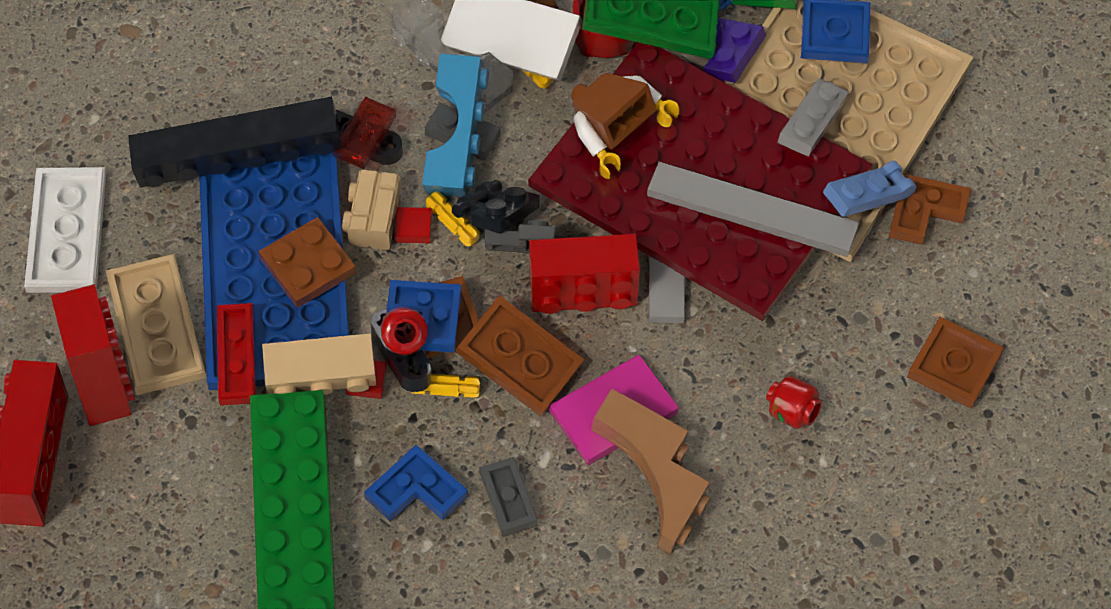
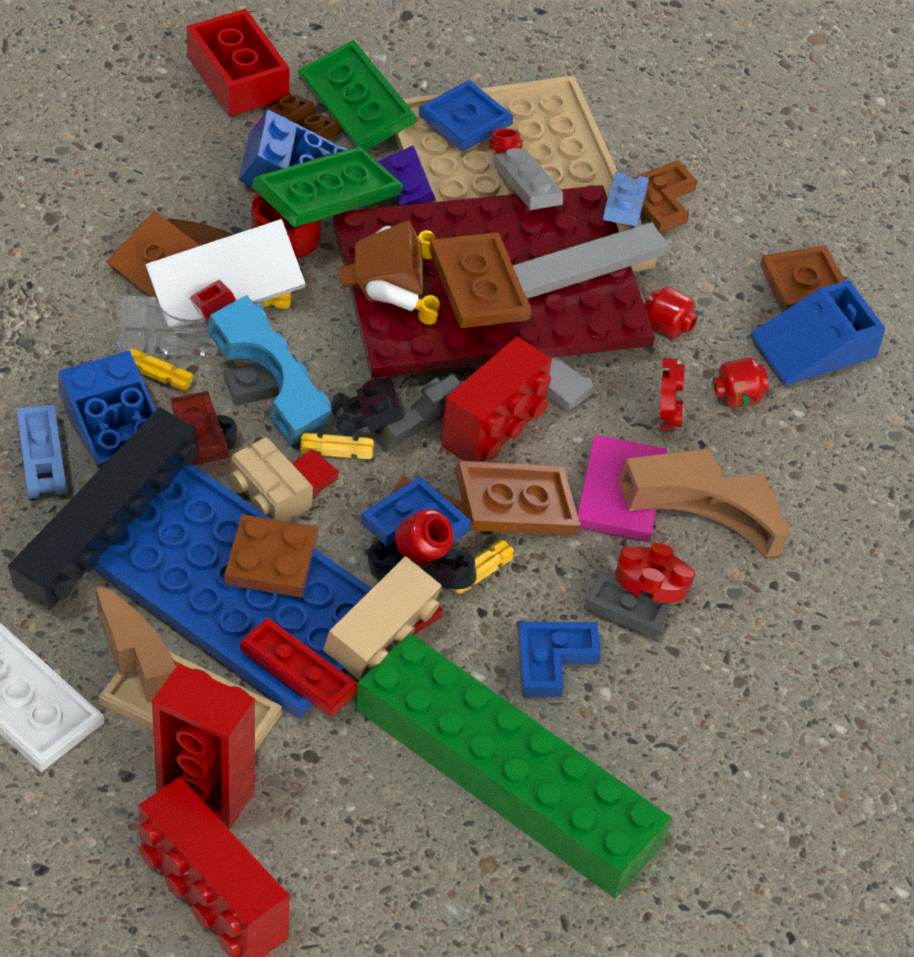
camera: 50 degrees left, 10 degrees down
(151, 256) = (134, 643): none -> medium nougat slope
(257, 70) = (41, 450): none -> medium blue plate
(329, 65) = (105, 403): none -> blue slope
(398, 68) = (162, 370): none -> yellow axle
(477, 43) = (212, 299): none -> red tile
(558, 474) = (654, 572): none -> red plate
(662, 169) = (479, 280): none -> dark orange plate
(717, 371) = (670, 383): none -> red plate
(811, 306) = (671, 312): none -> red head
(839, 73) = (504, 140): none -> red plate
(901, 413) = (820, 334): none -> blue slope

